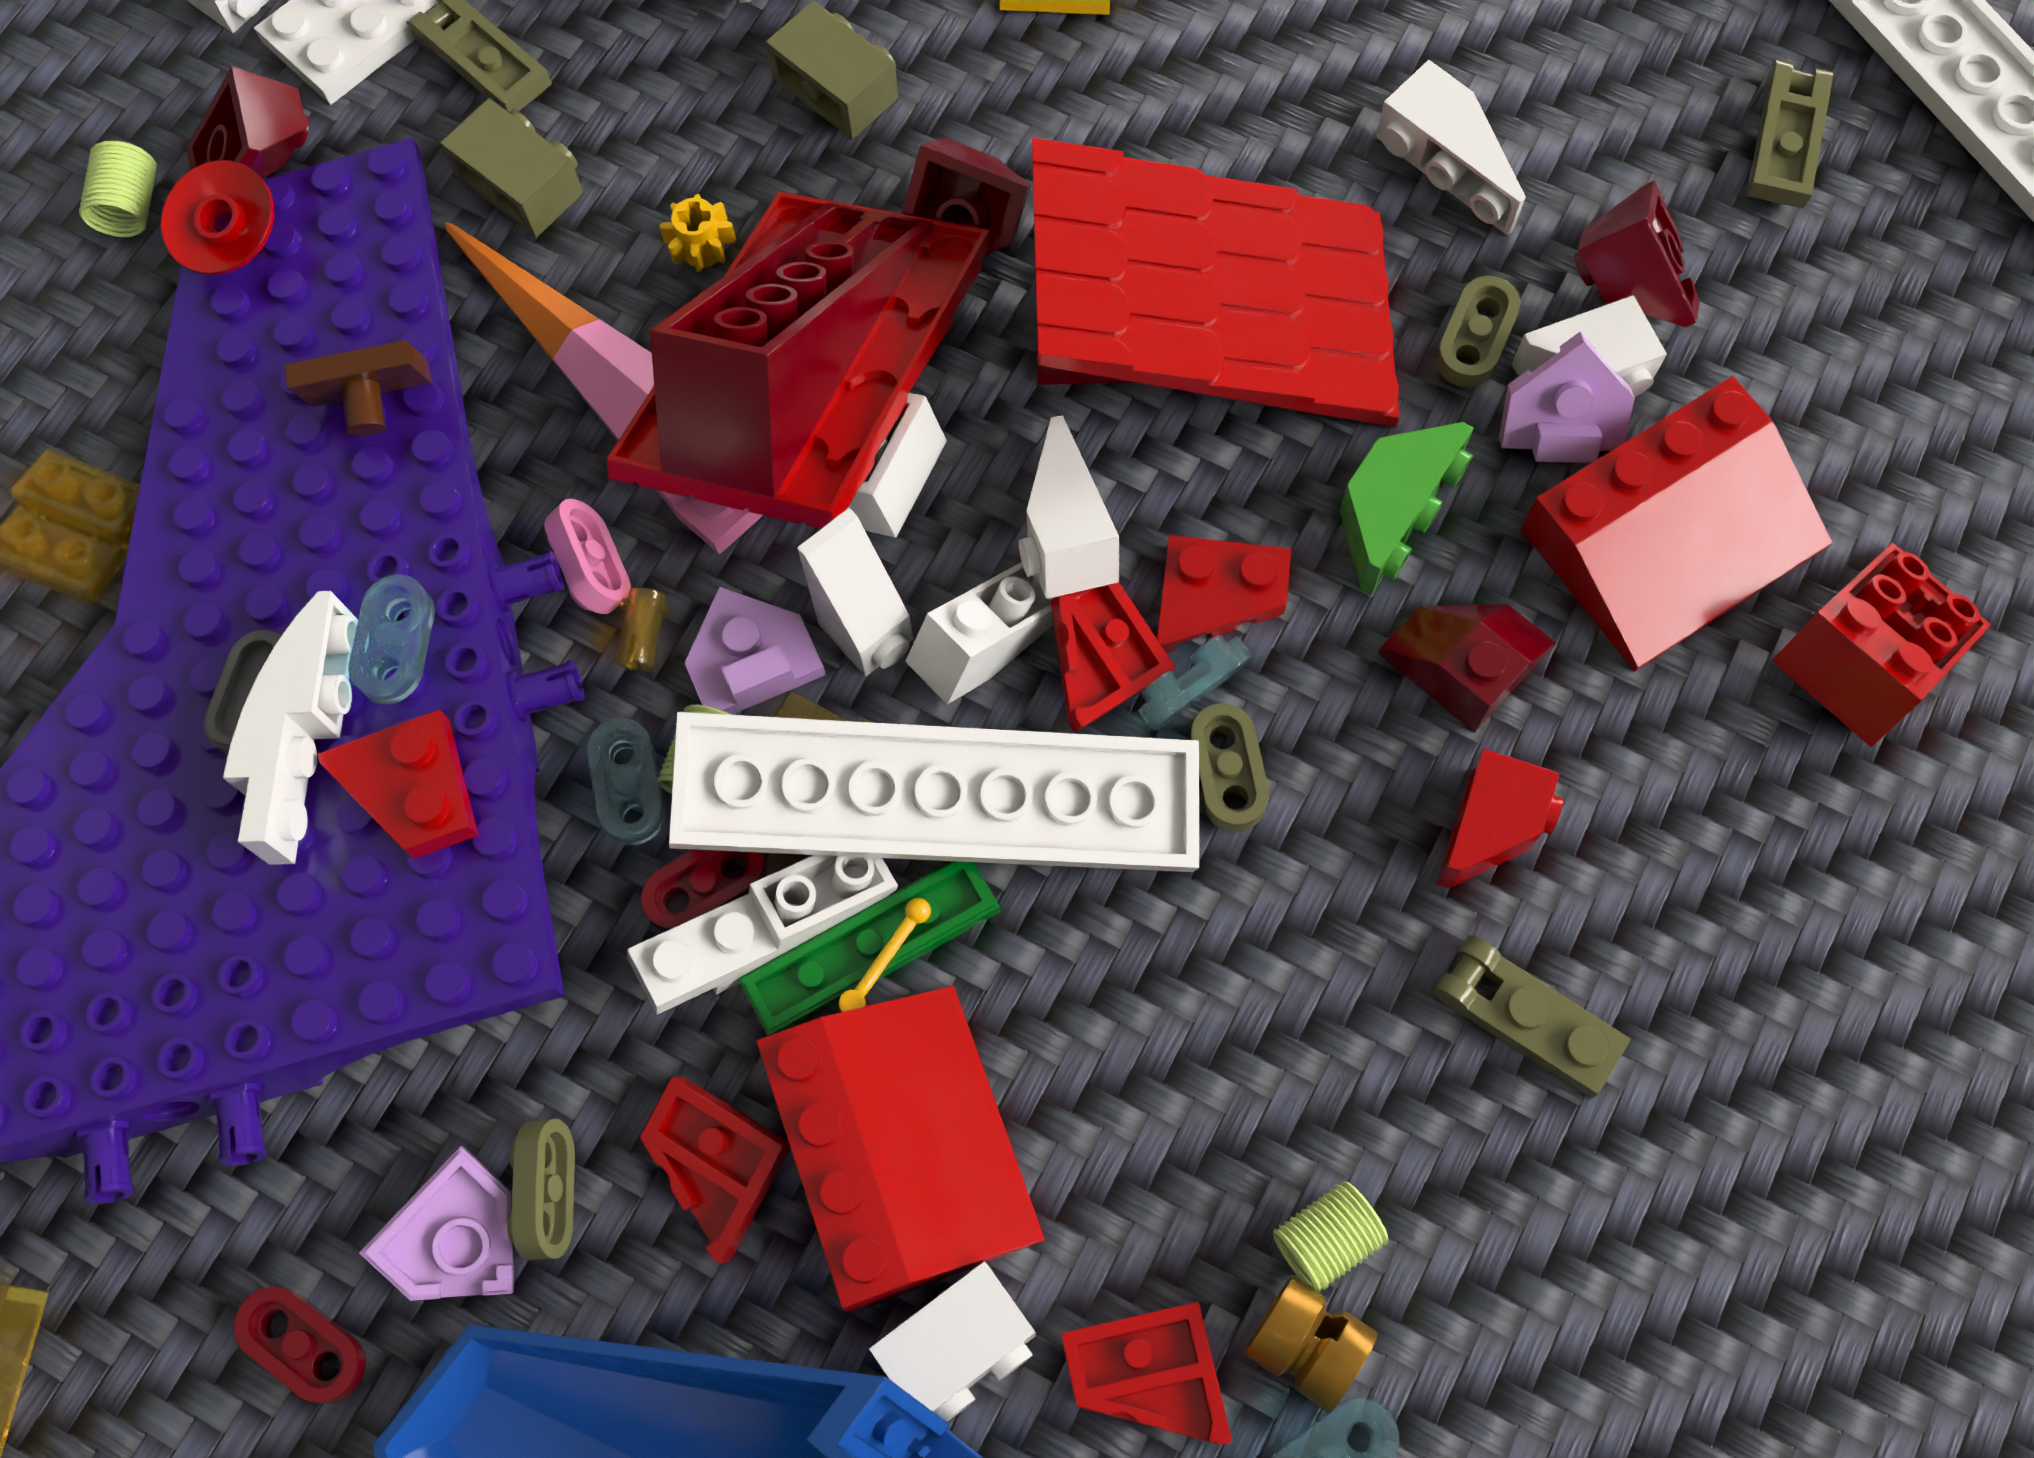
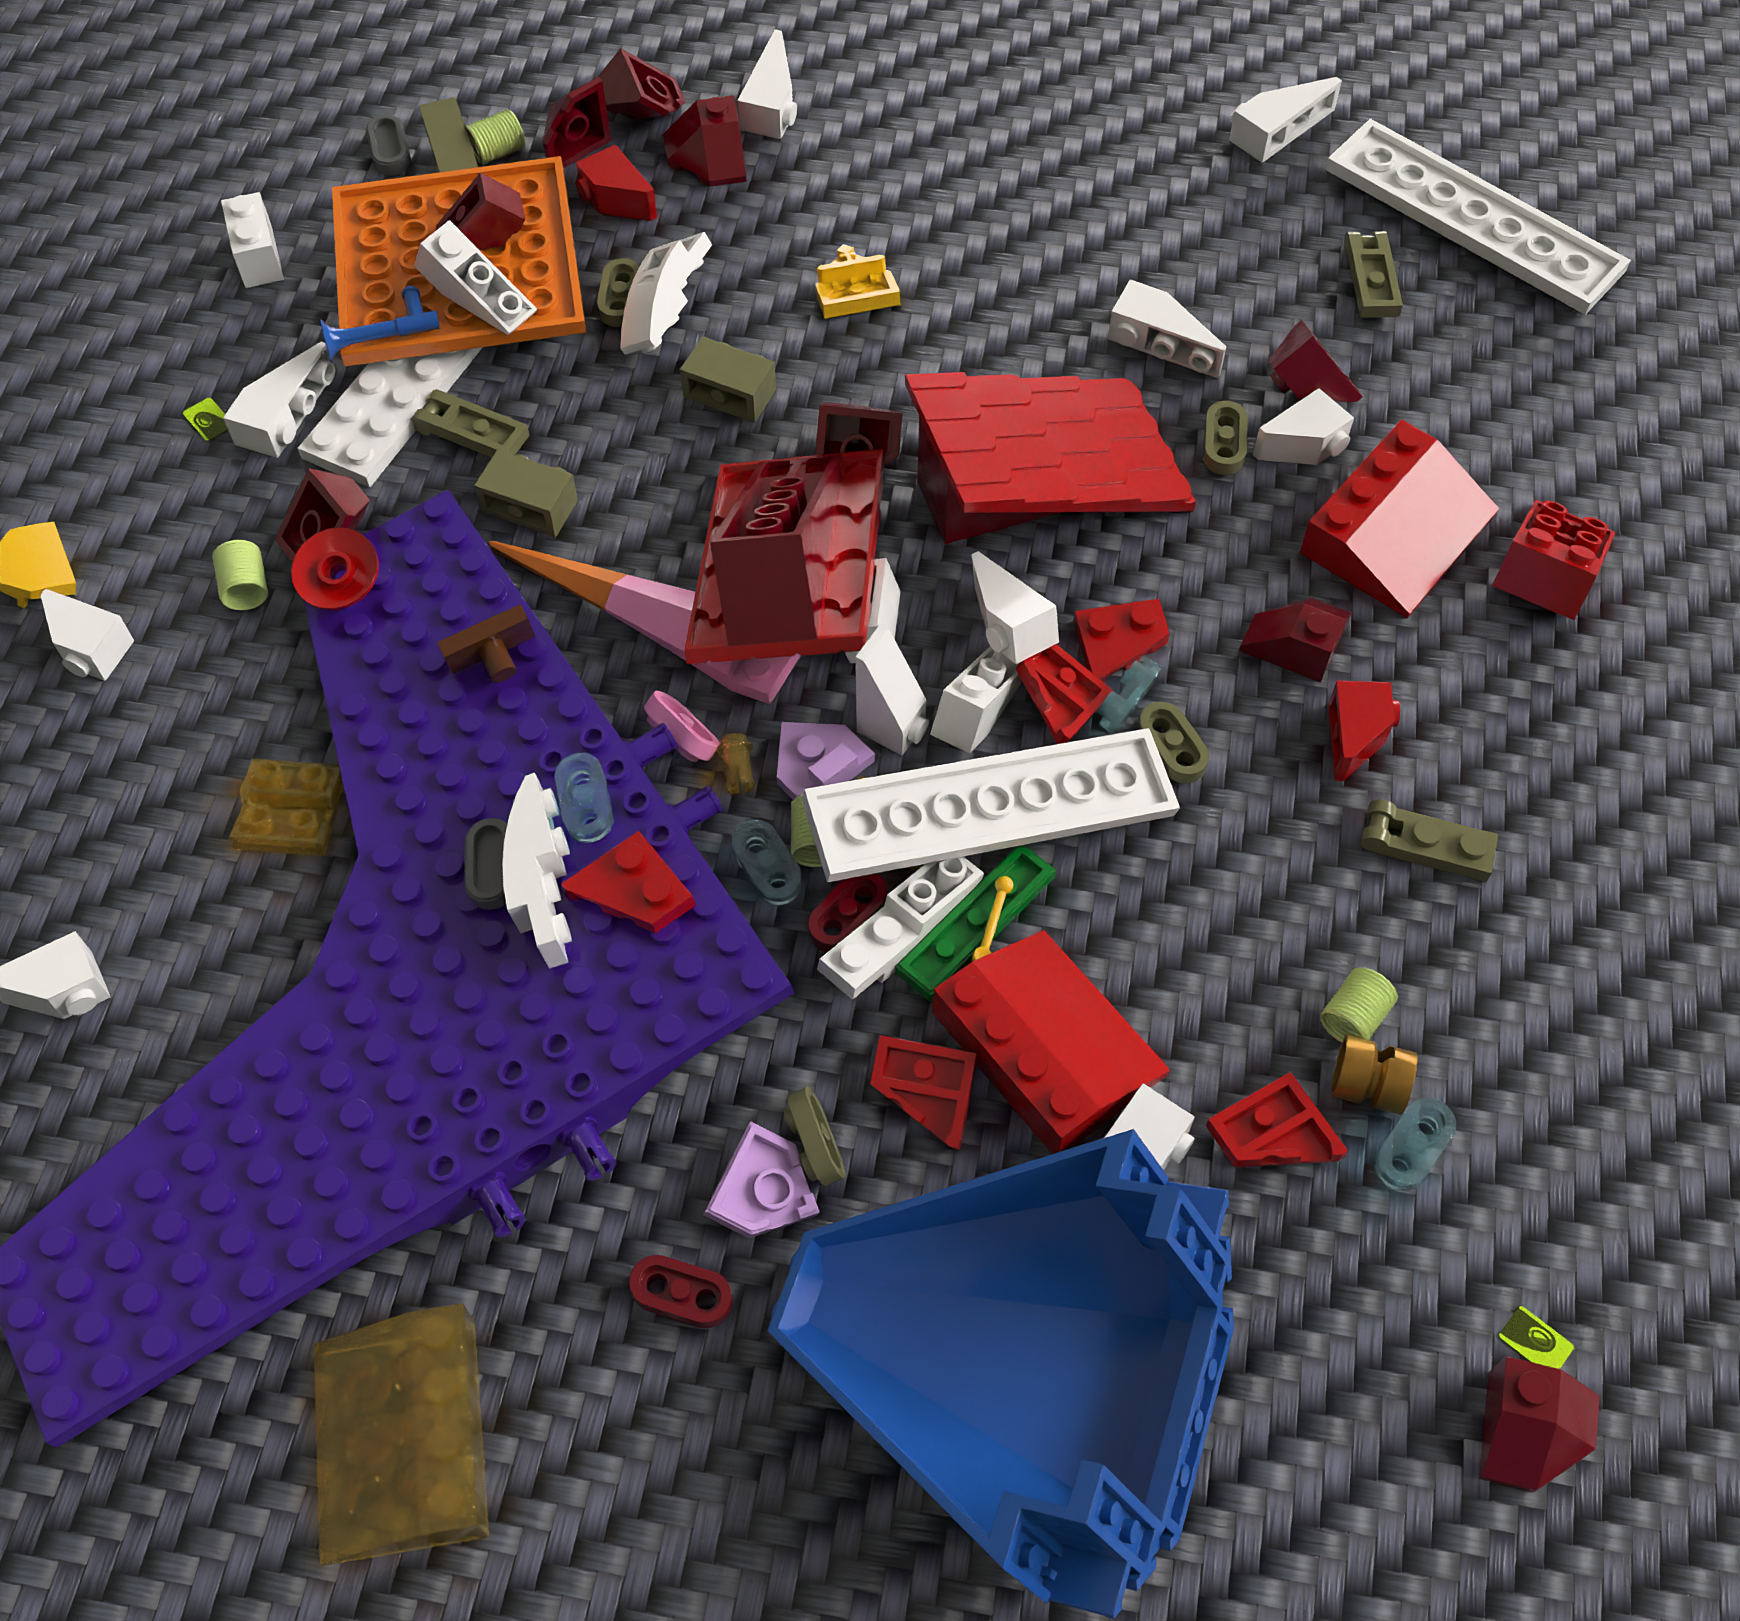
camera: 20 degrees left, 10 degrees down
(697, 232) = (675, 502): yellow gear -> none
(1398, 494) = (1214, 548): bright green slope -> none
(1567, 407) = (1302, 466): lavender plate -> none

